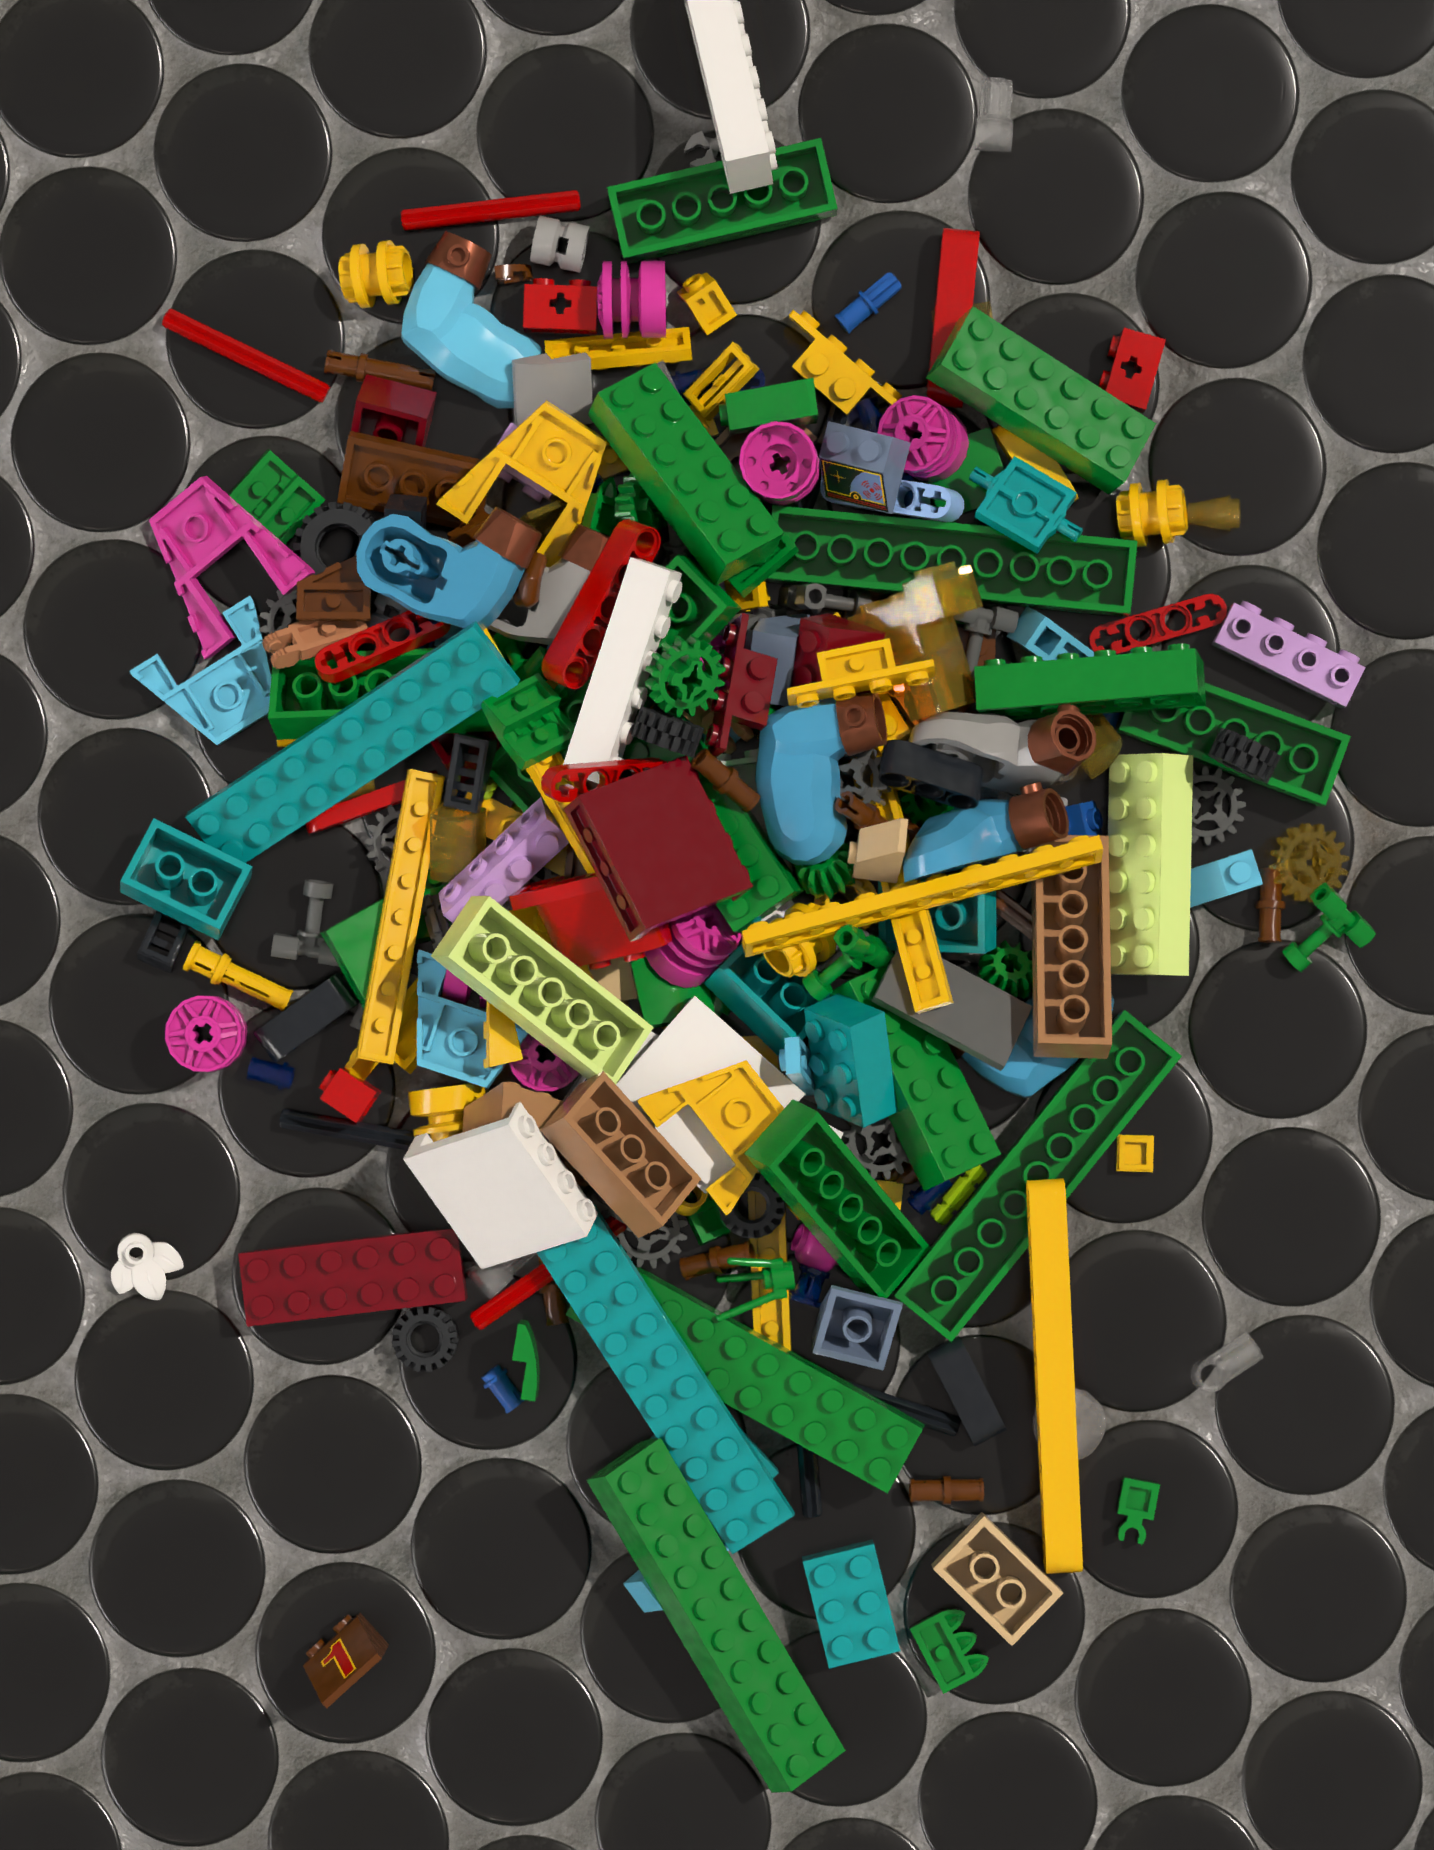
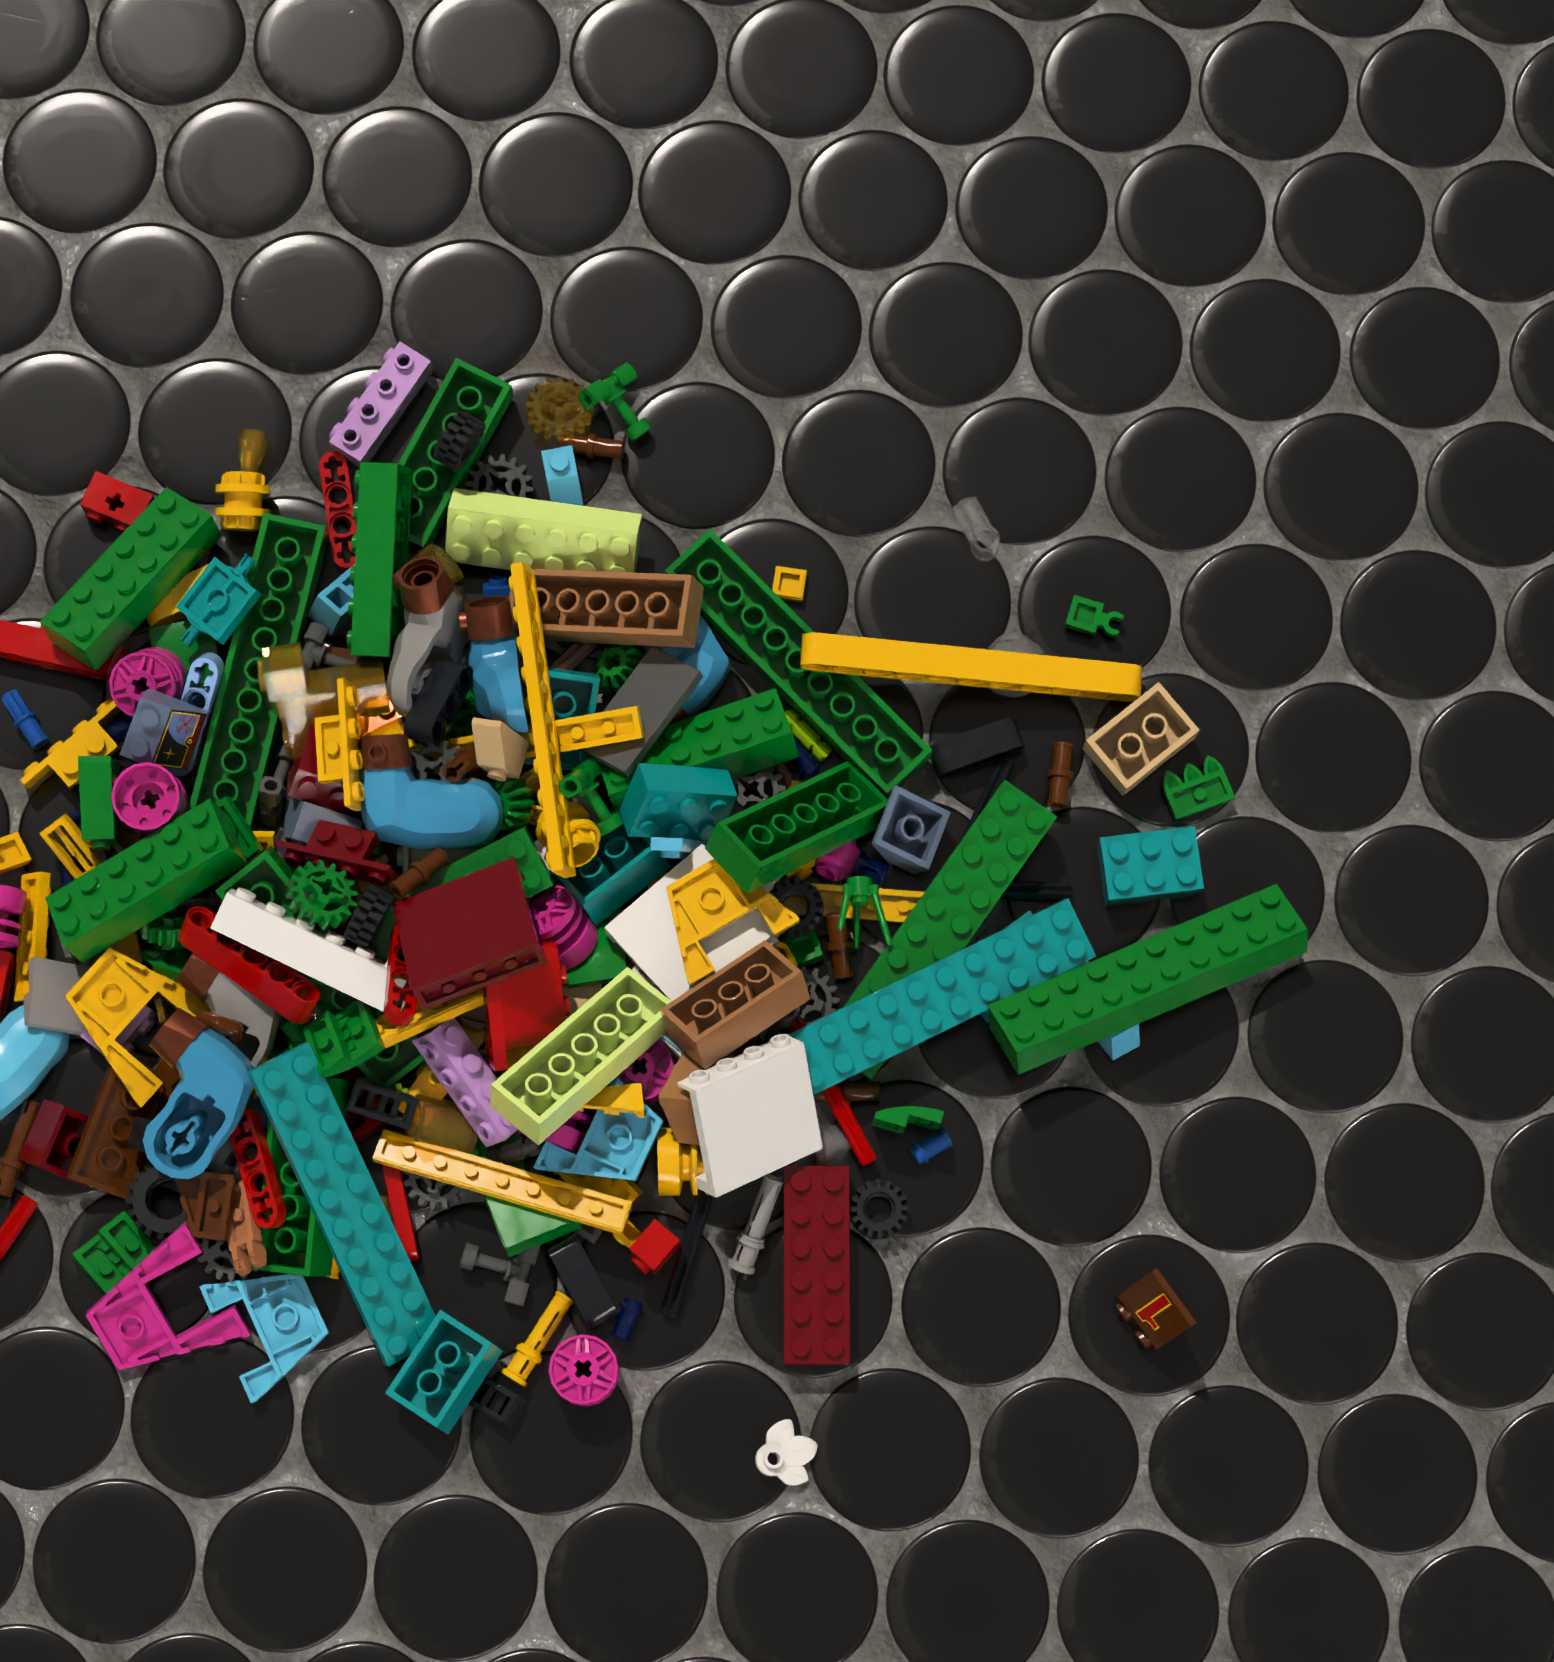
camera: 90 degrees left, 10 degrees down
(374, 1200) = (752, 1239): none -> light grey pin

